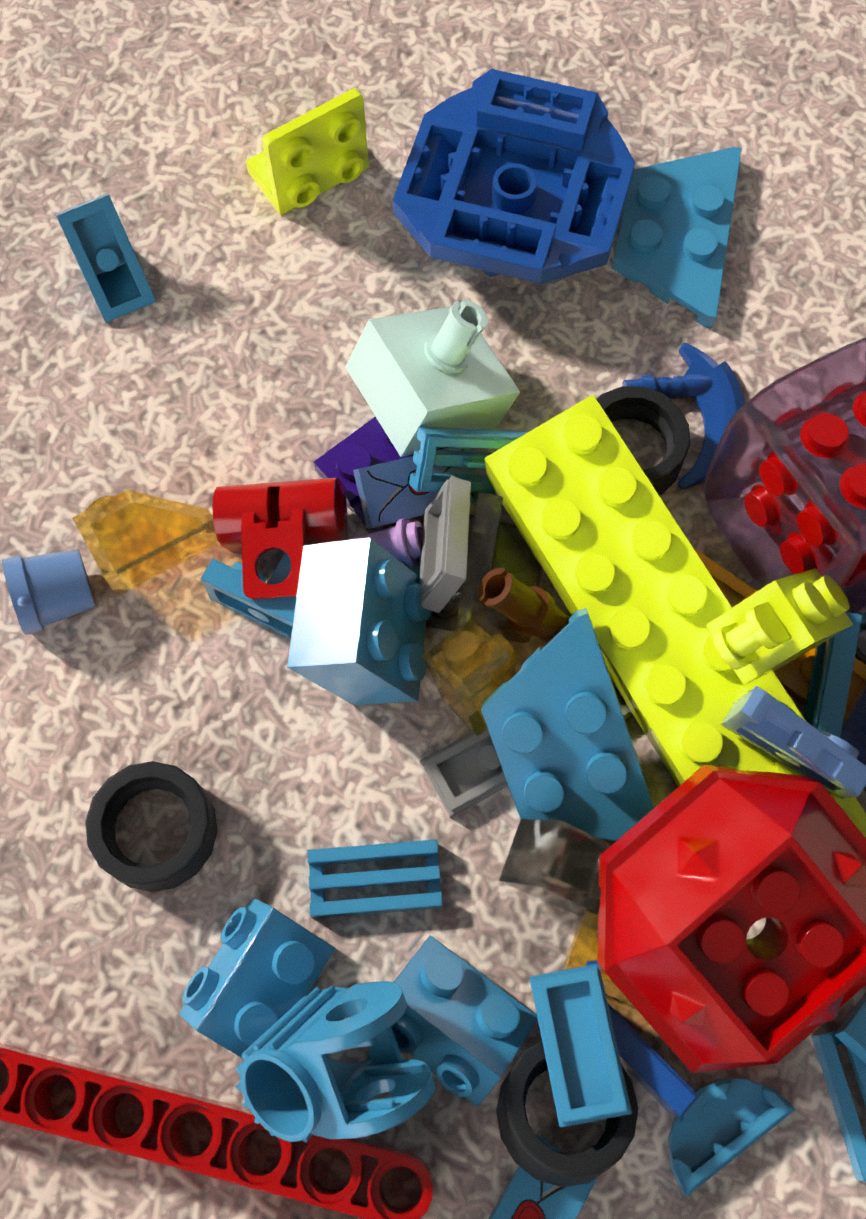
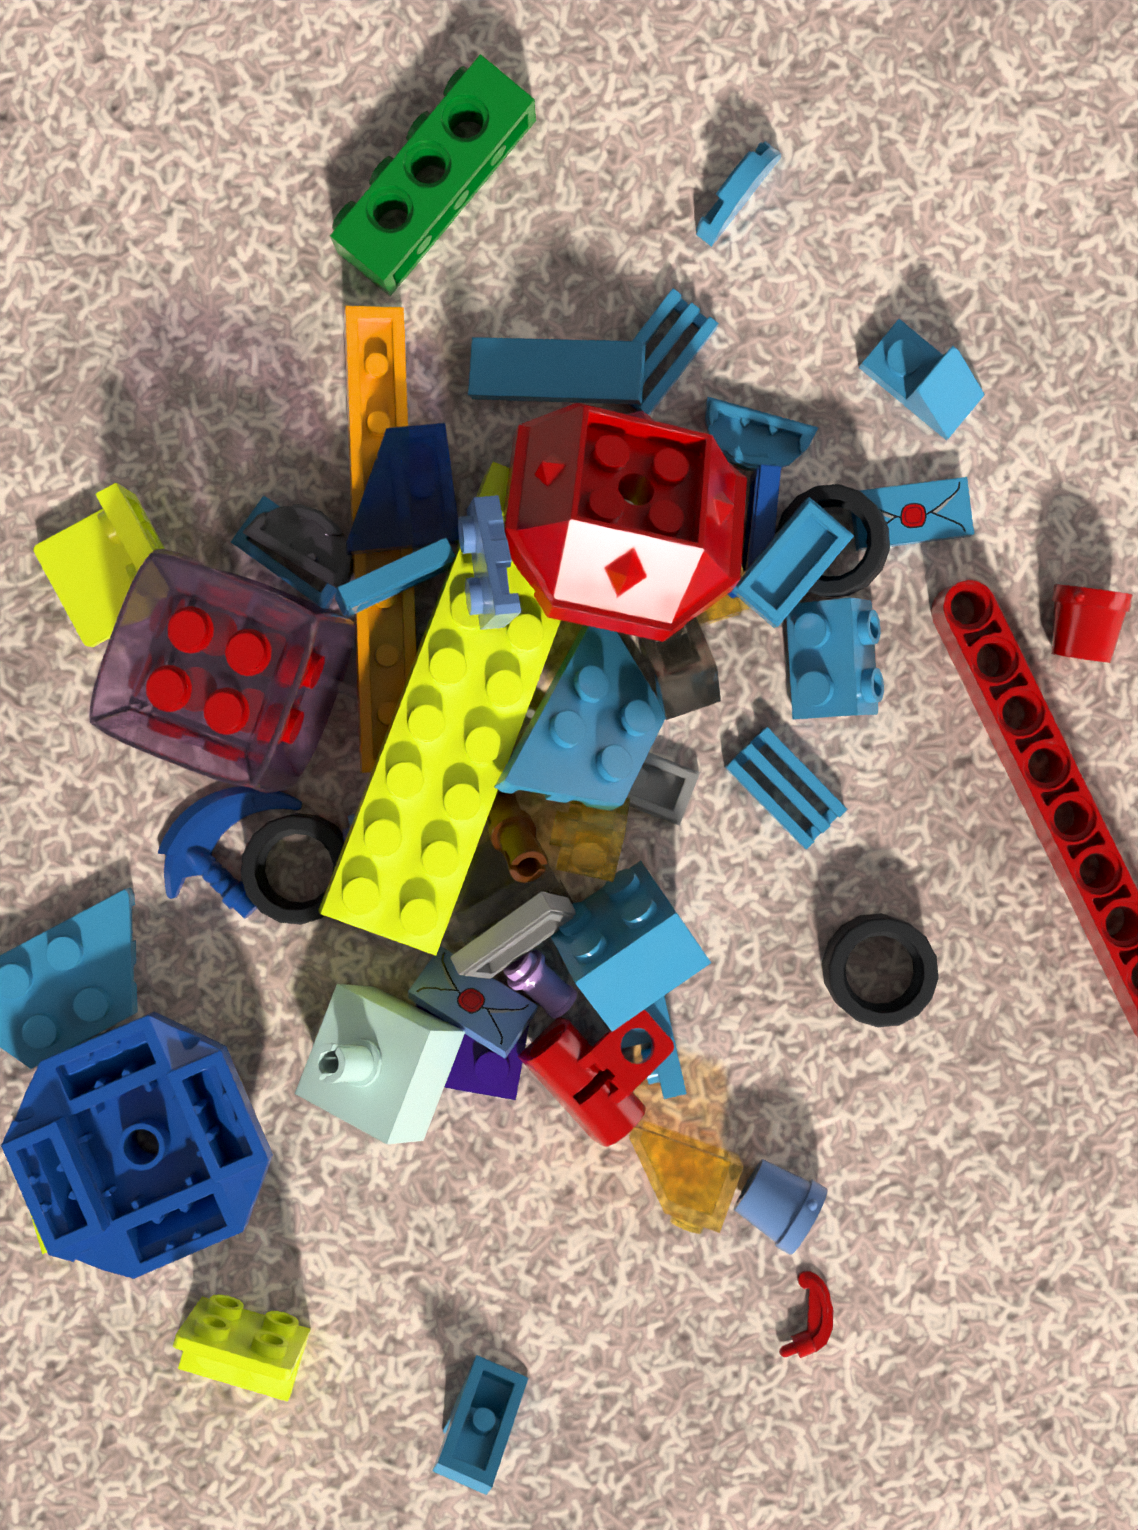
camera: 120 degrees left, 20 degrees up
(253, 977) = (918, 810): dark azure bracket -> none
(306, 1093) = (955, 709): dark azure piece -> none
(436, 437) = (419, 982): dark azure tile -> none
(780, 623) = (410, 637): neon yellow brick -> none

